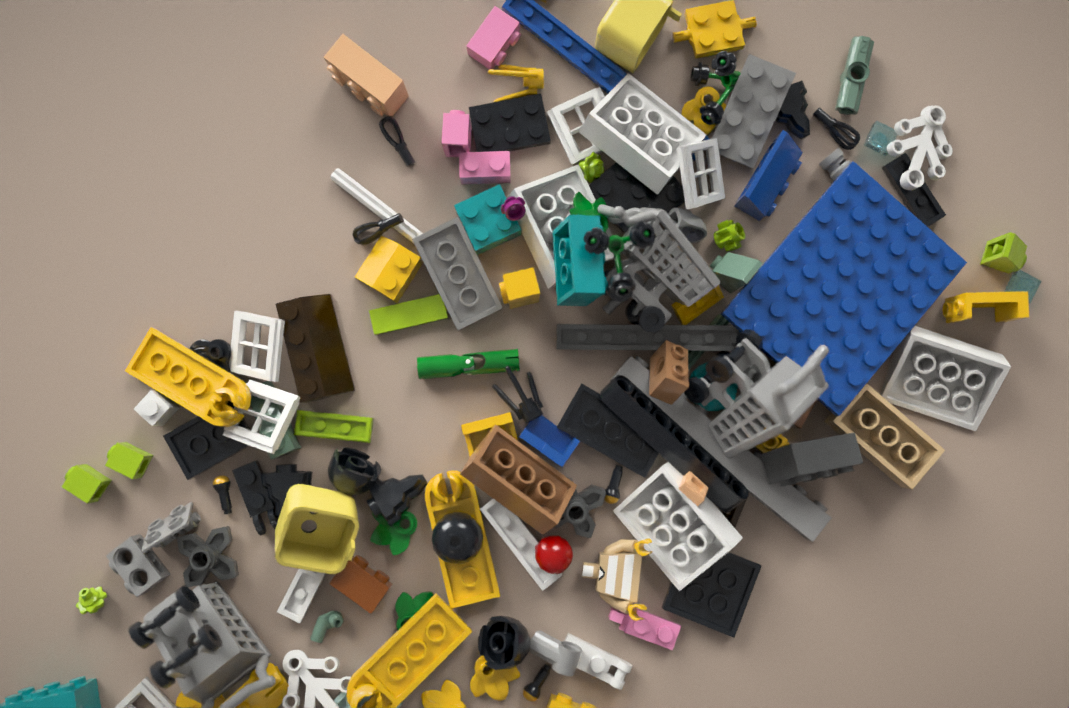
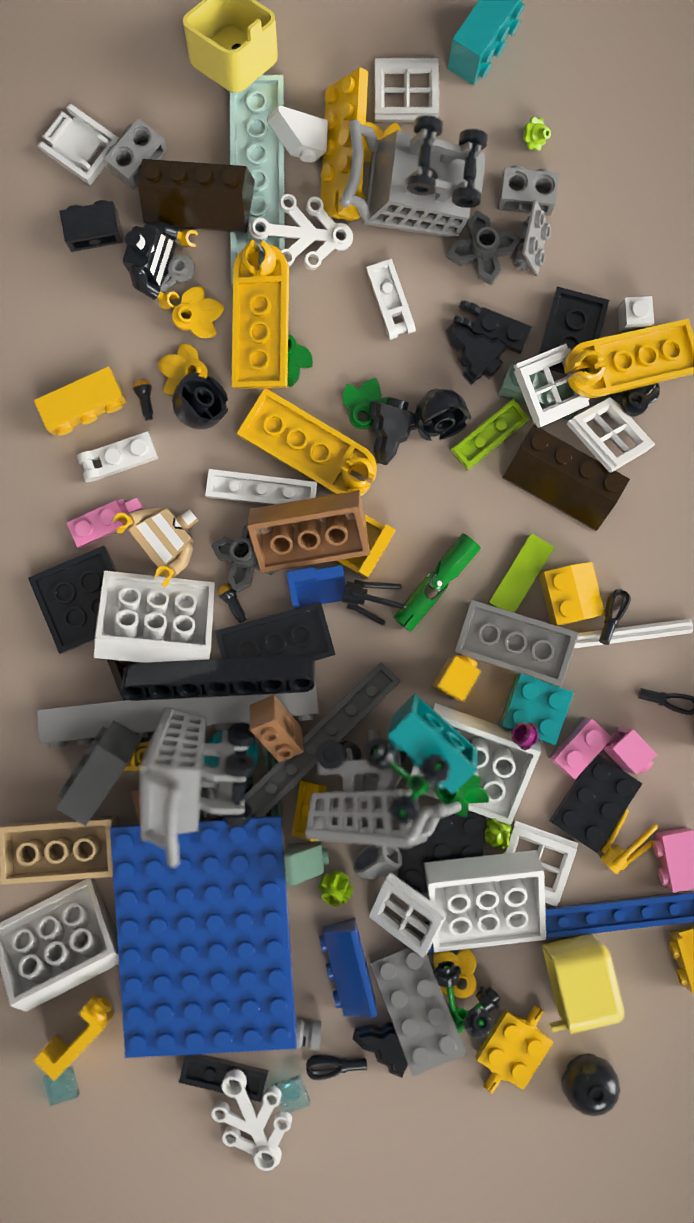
camera: 140 degrees right, 0 degrees up
(85, 483) = (628, 210): lime brick -> none
(128, 460) = (615, 257): lime brick -> none
(222, 485) = (526, 307): black piece -> none
(325, 622) = (348, 285): sand green arm -> none
(333, 539) = (403, 340): light yellow piece -> none
(362, 583) = (350, 340): dark orange brick -> none
(457, 538) = (312, 443): black cylinder -> none
(553, 554) = (227, 503): red hair -> none
(561, 654) = (146, 435): light grey piece -> none
(693, 488) = (169, 657): light nougat tile -> none
(857, 62) = (371, 1140): sand green piece -> none
(1005, 253) = (100, 1098): lime slope -> none

